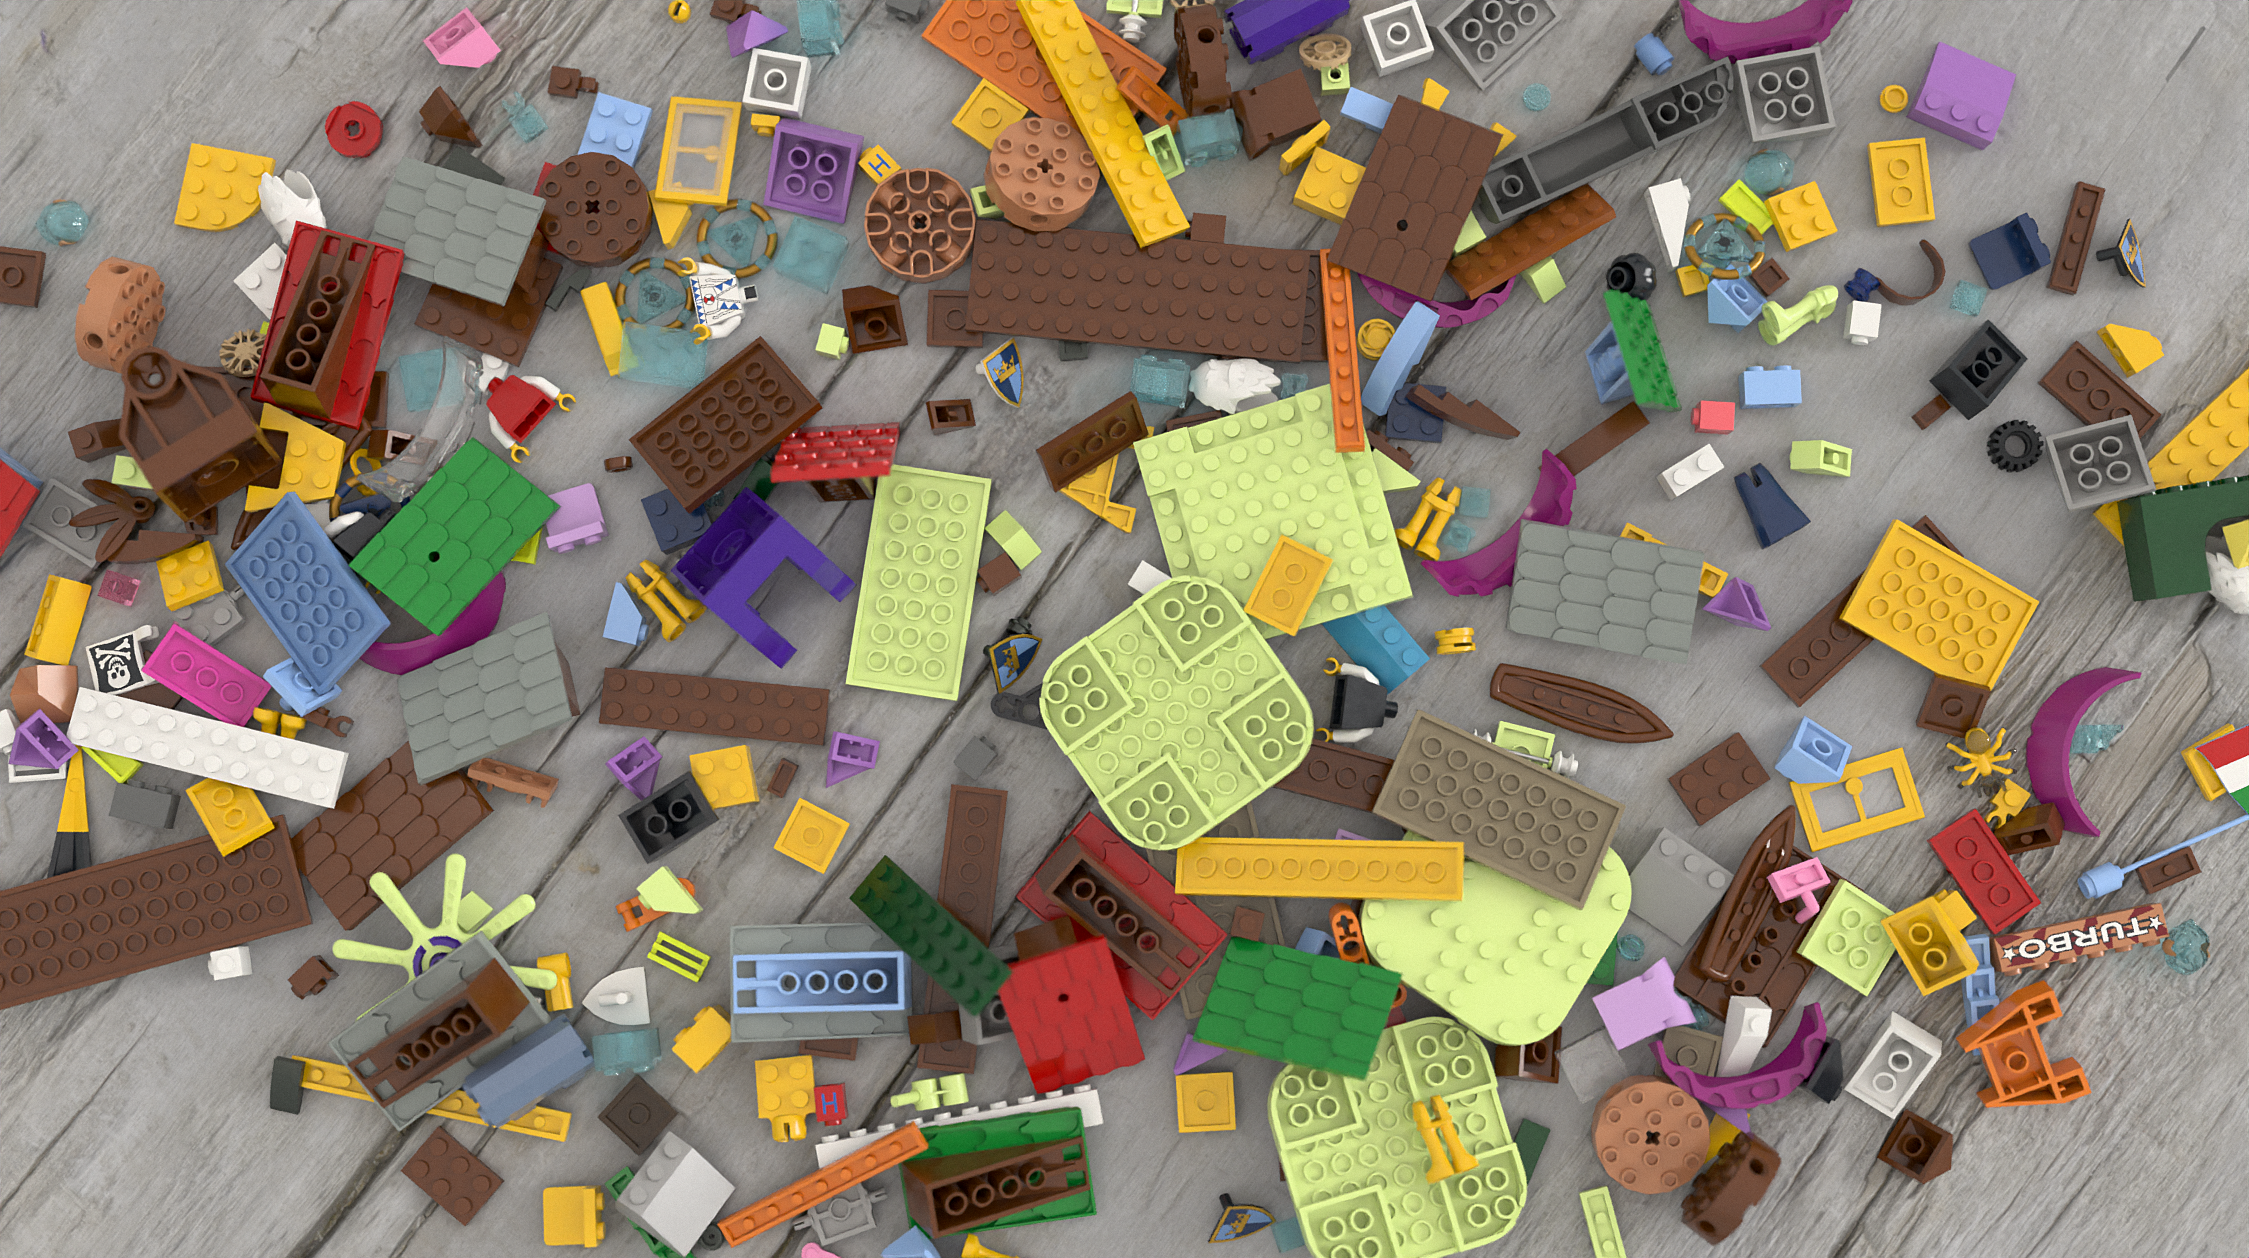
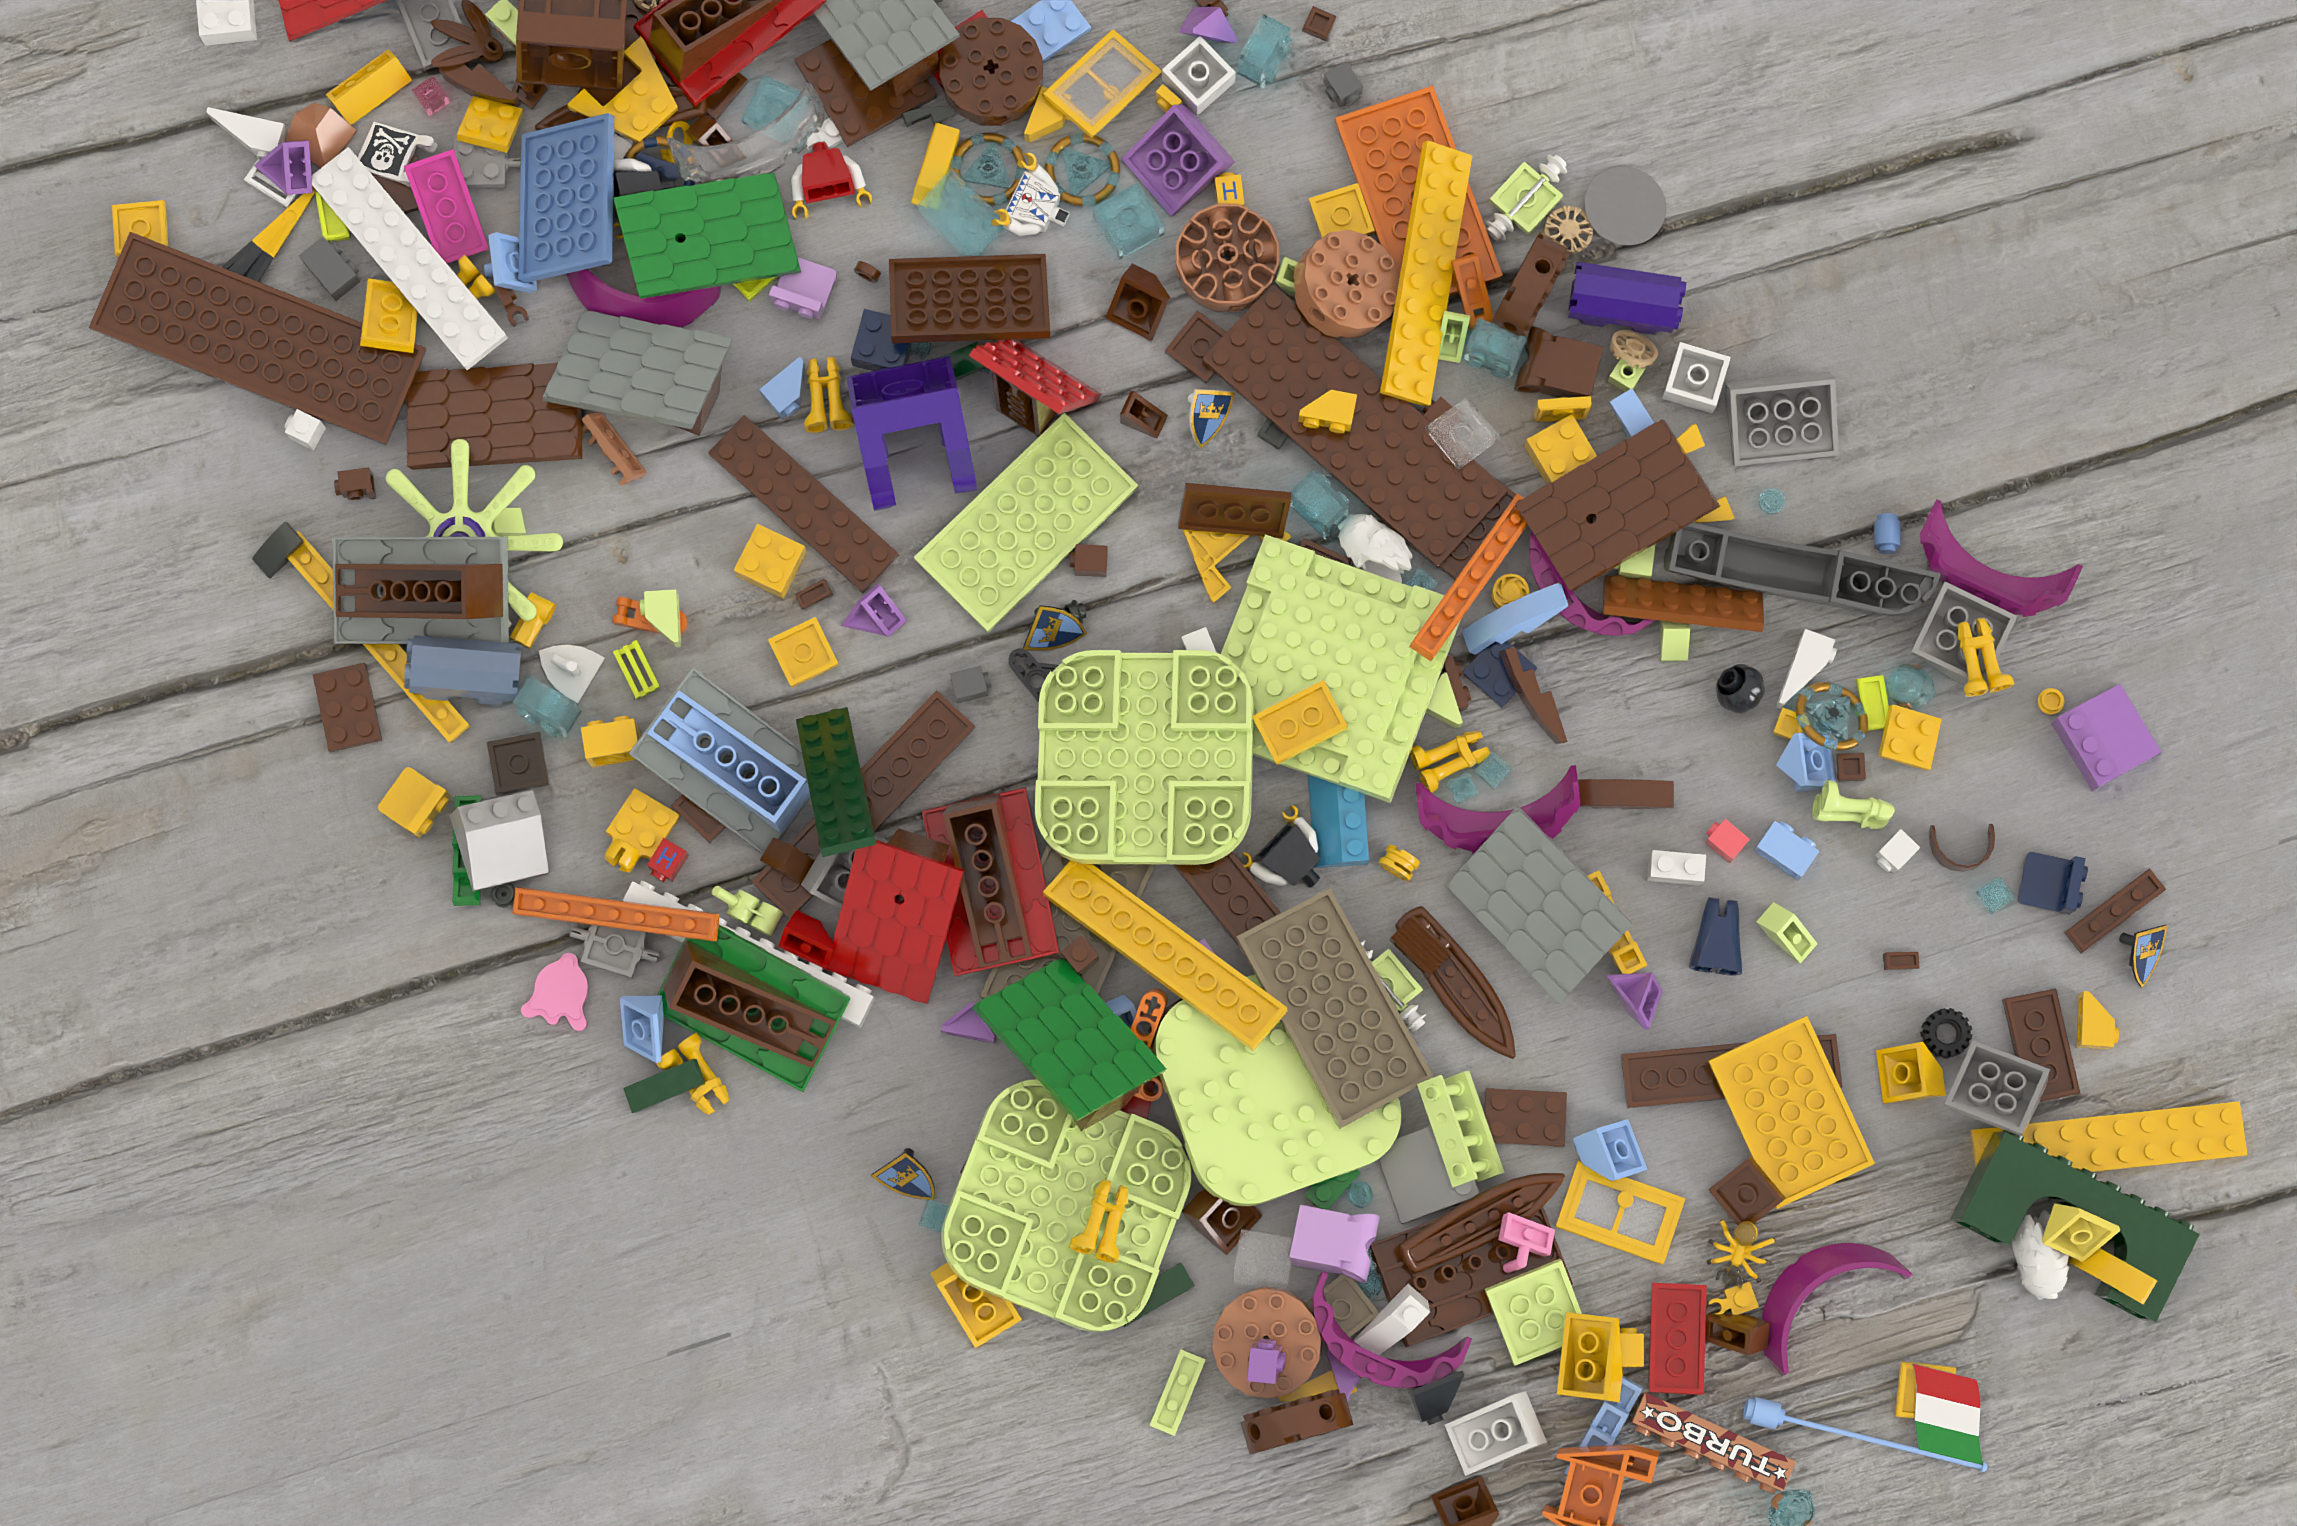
camera: 35 degrees right, 5 degrees down
(637, 767) = (711, 506): medium lavender slope -> none
(668, 818) = (707, 558): black slope -> none
(832, 342) = (1095, 297): yellowish green plate -> none
(1003, 1082) = (807, 939): none -> red slope
(1013, 539) = (1121, 544): yellowish green slope -> none
(1112, 292) = (1330, 410): none -> yellow slope
(1205, 1102) = (948, 1069): yellow plate -> none
(1236, 231) = (1462, 433): none -> clear plate
(1528, 699) = (1421, 945): none -> reddish brown brick
(1630, 356) = (1697, 742): green piece -> none
(1670, 1158) = (1265, 1361): none -> medium lavender brick
(1678, 831) = (1460, 1128): none -> yellowish green fence
(1811, 88) = (1995, 679): none -> yellow piece
(1861, 285) = (1917, 824): clear blue wheel -> none
(1901, 182) = (2008, 768): yellow plate -> none
(1978, 370) = (1961, 954): black slope -> none
(2011, 504) = (1909, 1073): none -> yellow slope
(2092, 738) = (1837, 1299): clear light blue slope -> none
(2168, 870) = (1822, 1444): reddish brown plate -> none

